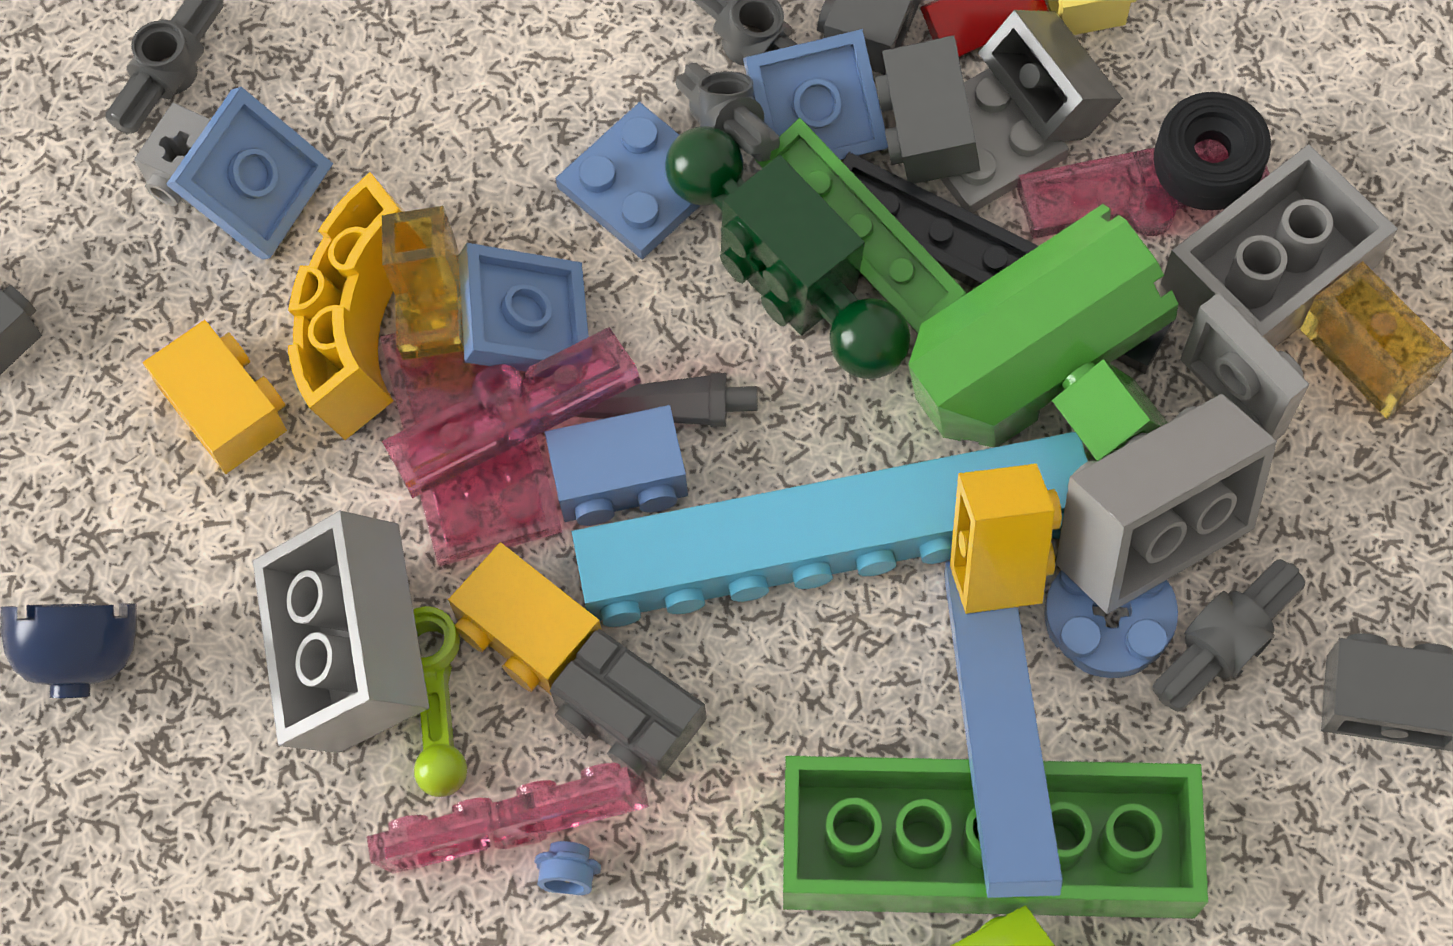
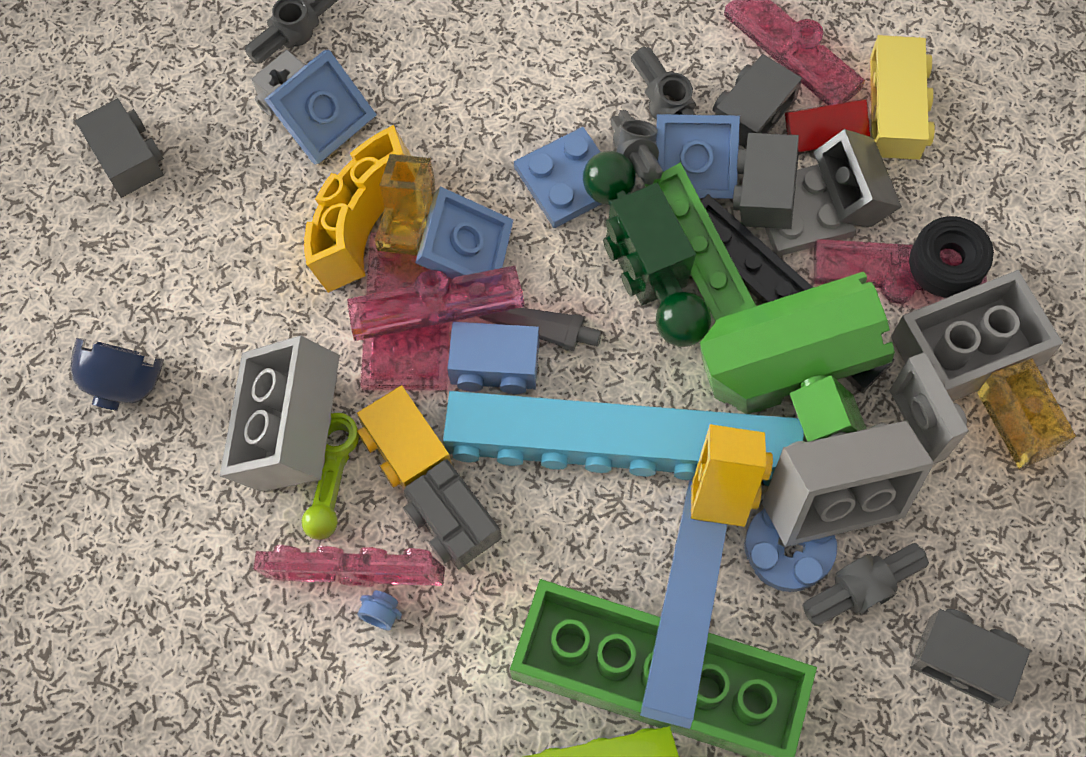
camera: 15 degrees right, 0 degrees up
(216, 394) = (255, 241): yellow brick -> none

